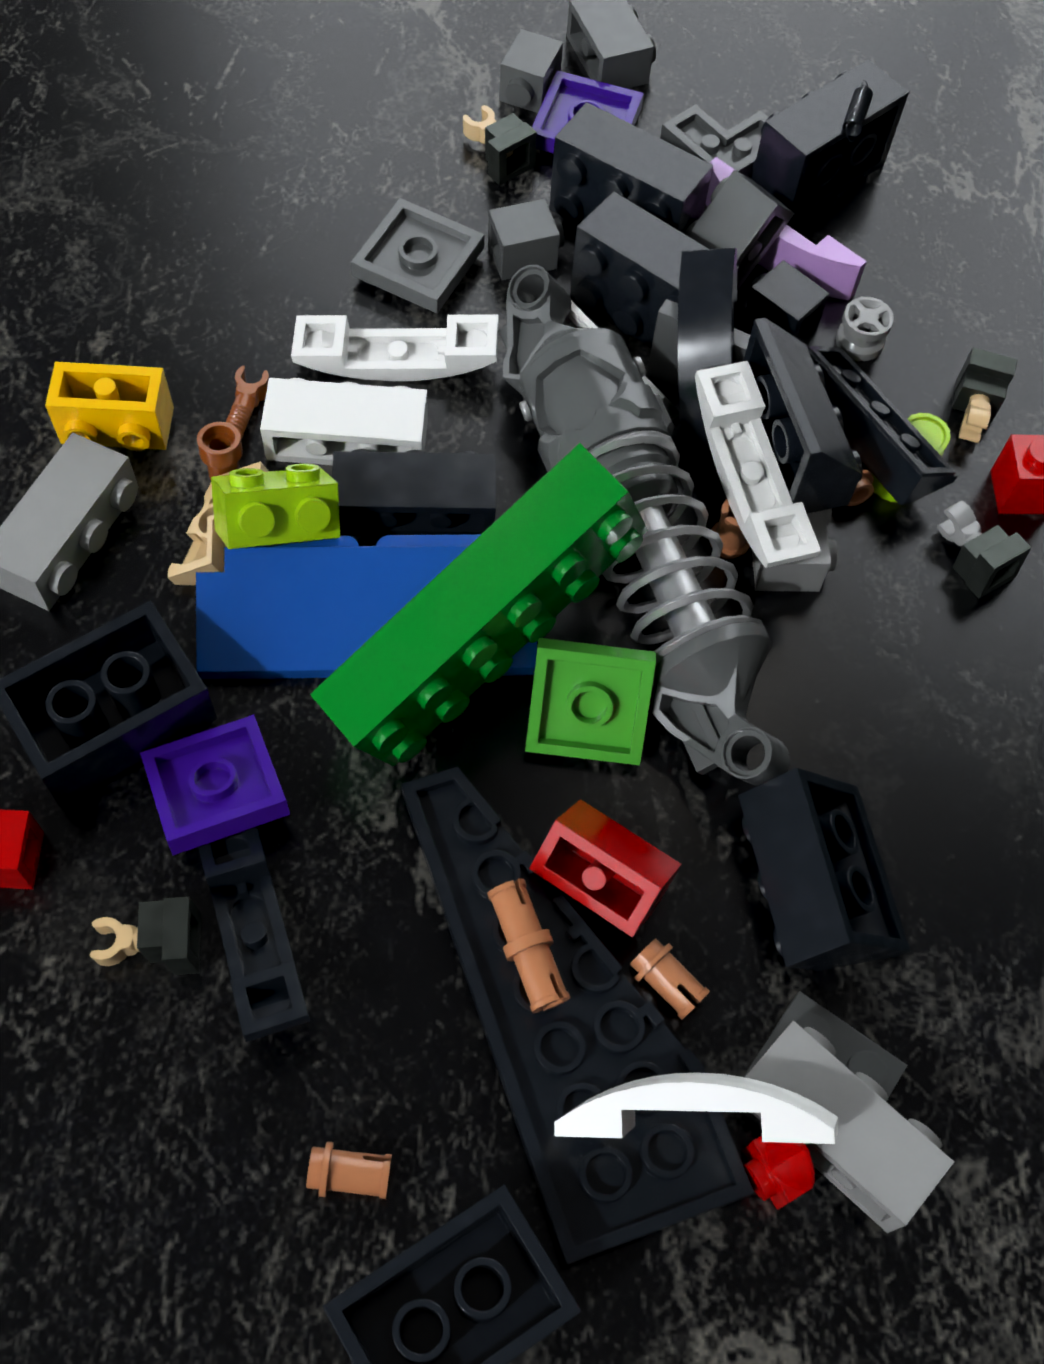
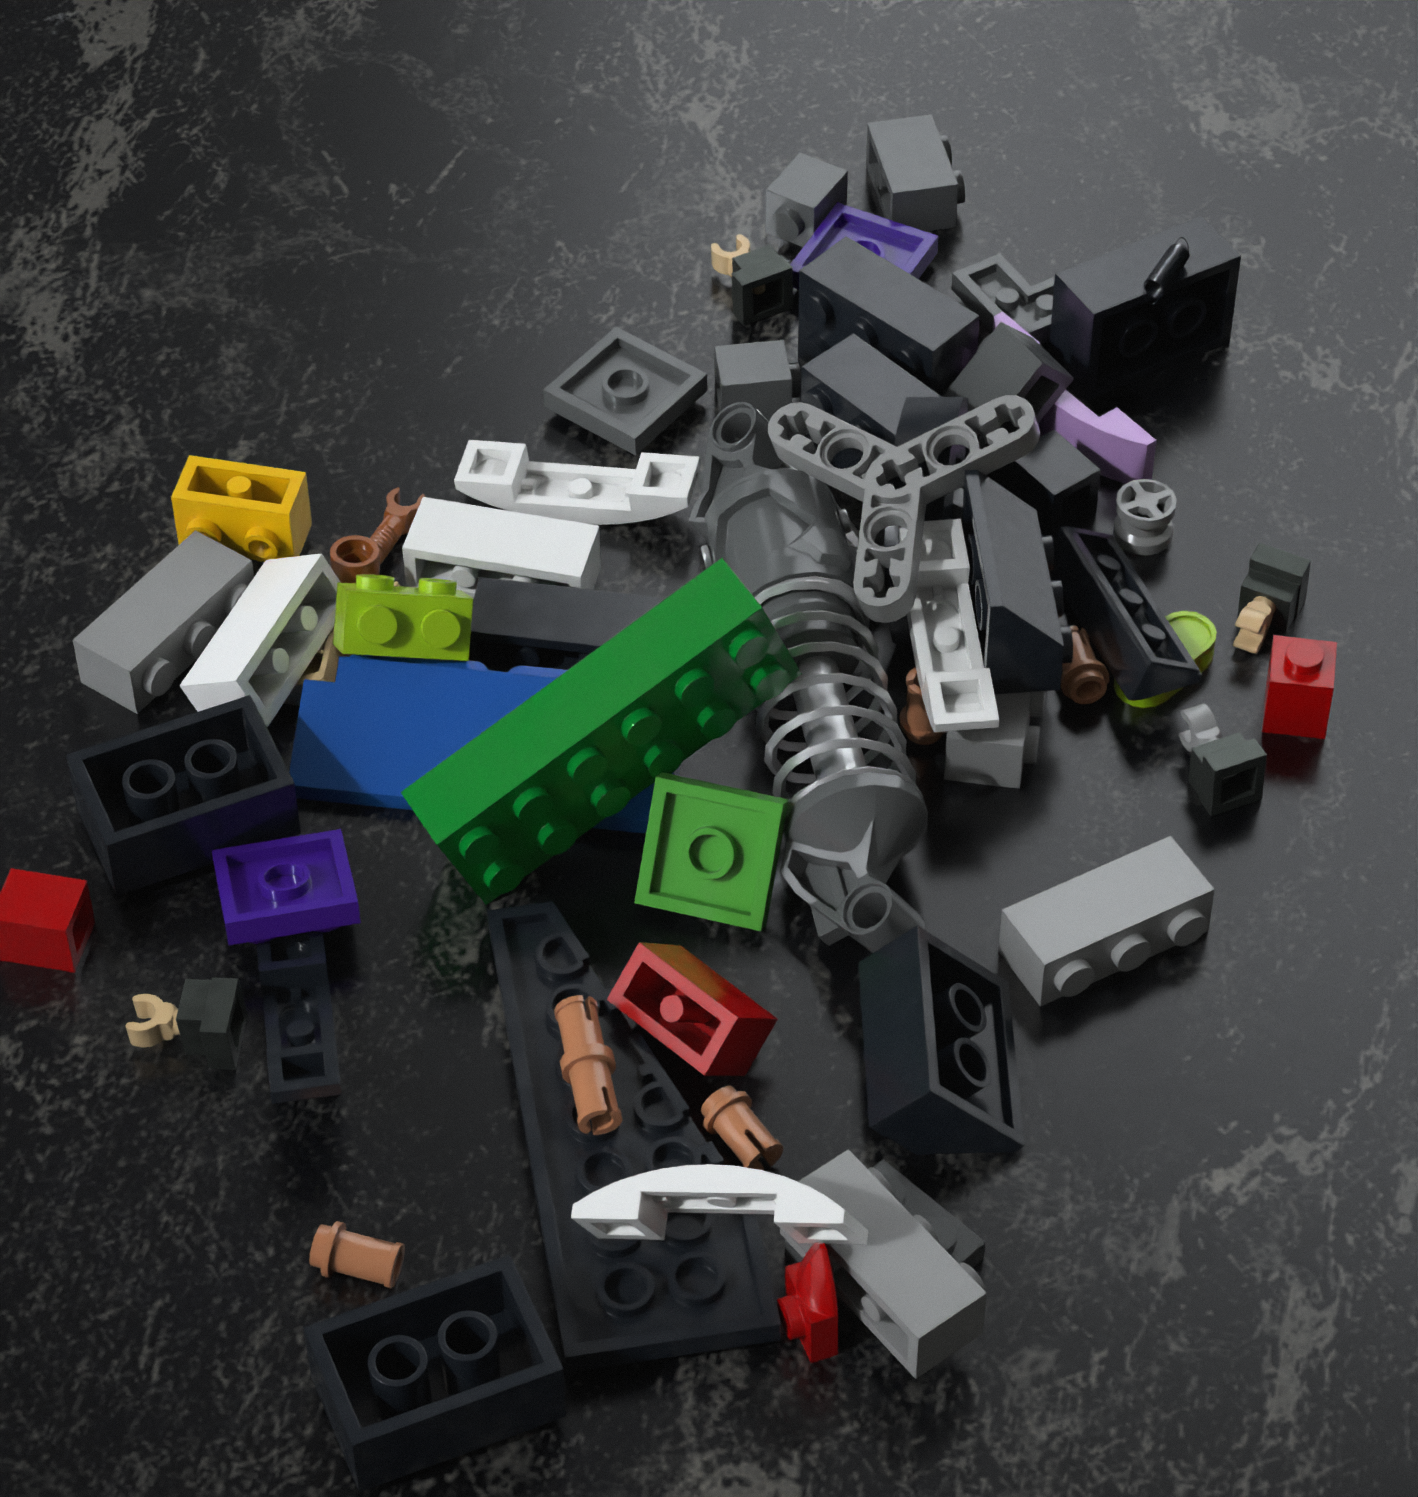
camera: 15 degrees right, 15 degrees down
(153, 533) = (267, 636): none -> white brick
(677, 314) = (907, 505): none -> light grey piece
(932, 721) = (1105, 921): none -> light grey brick

